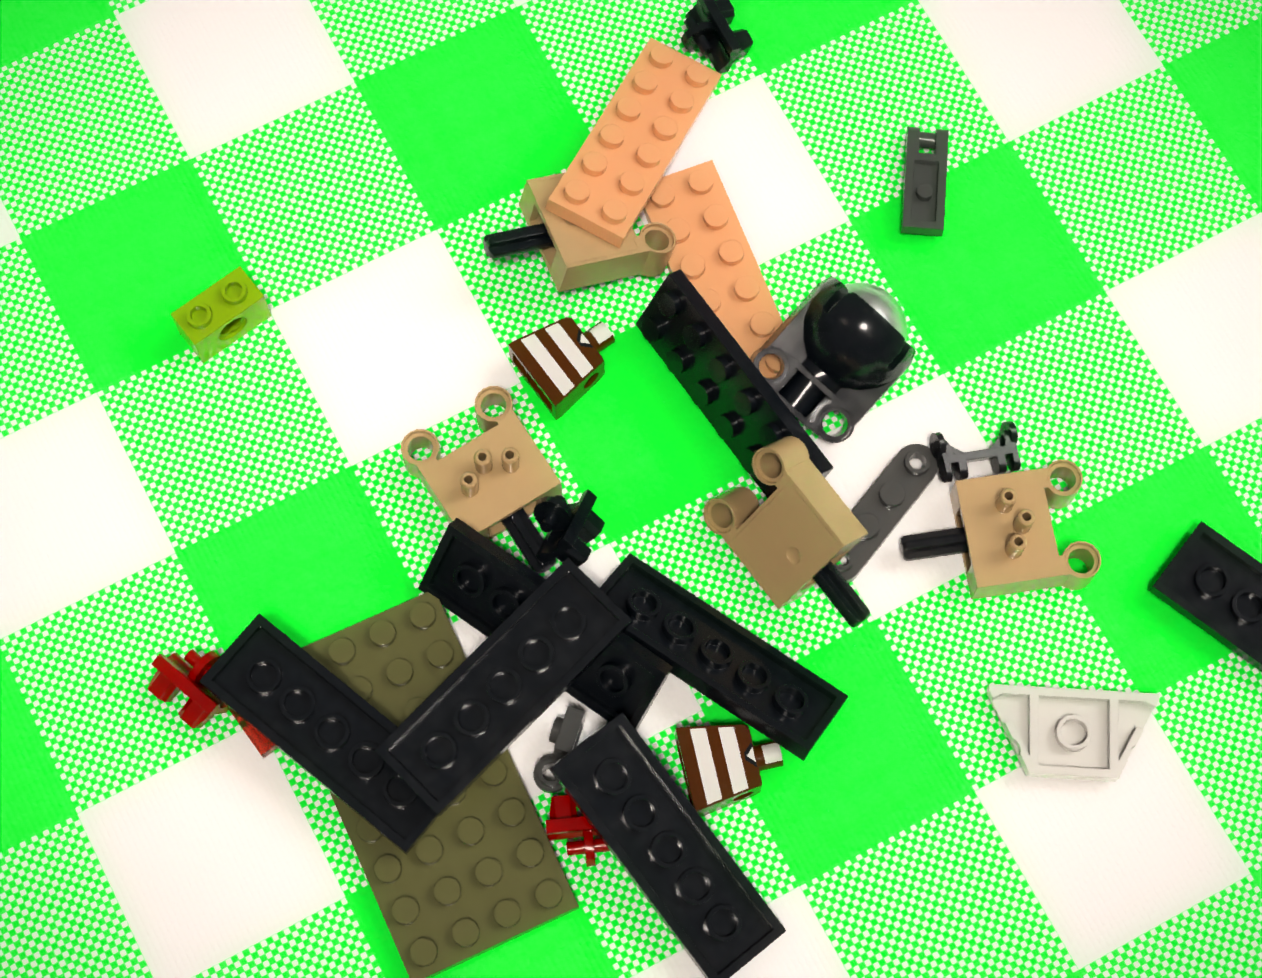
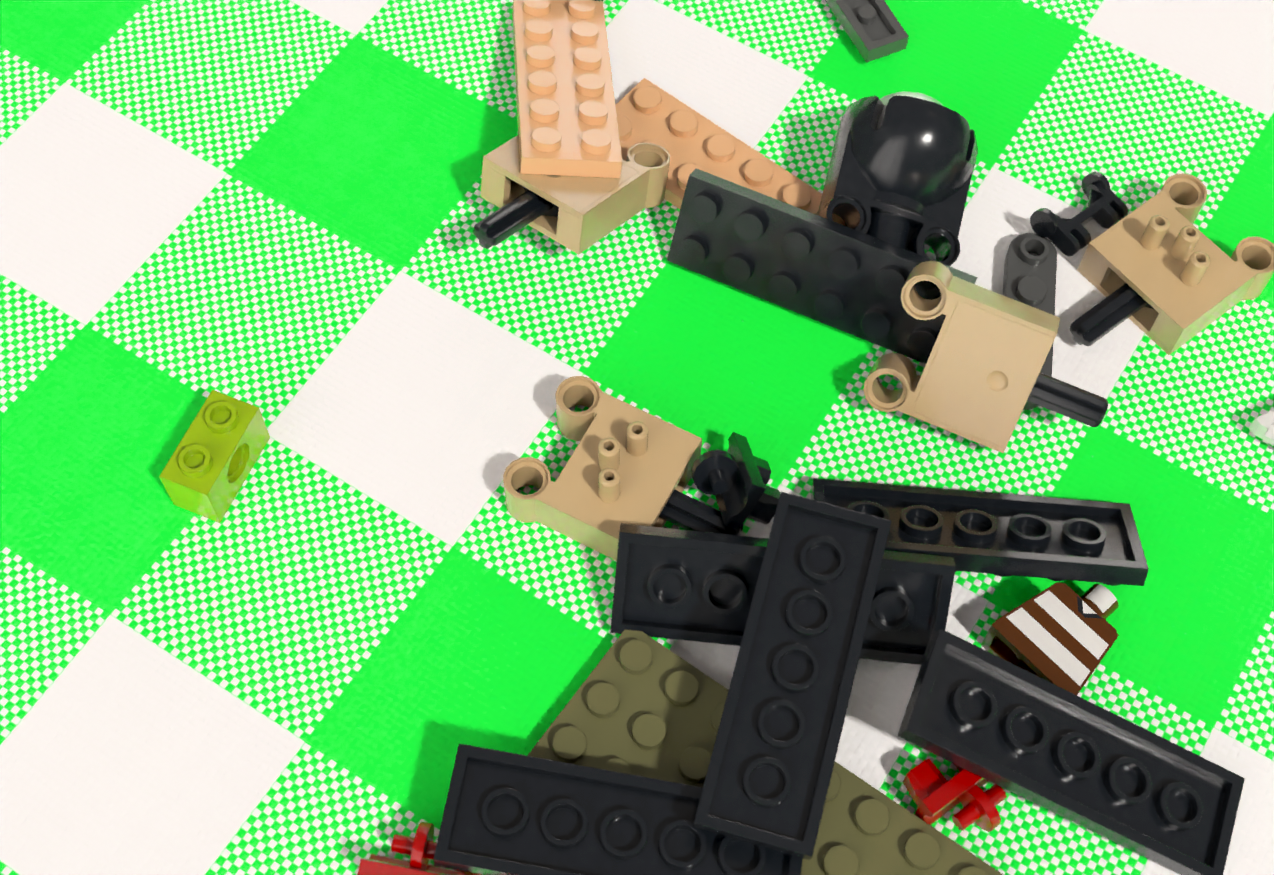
camera: 30 degrees left, 10 degrees down
(561, 362) = (616, 328): reddish brown torso -> none
(565, 735) = (876, 700): dark grey plate -> none

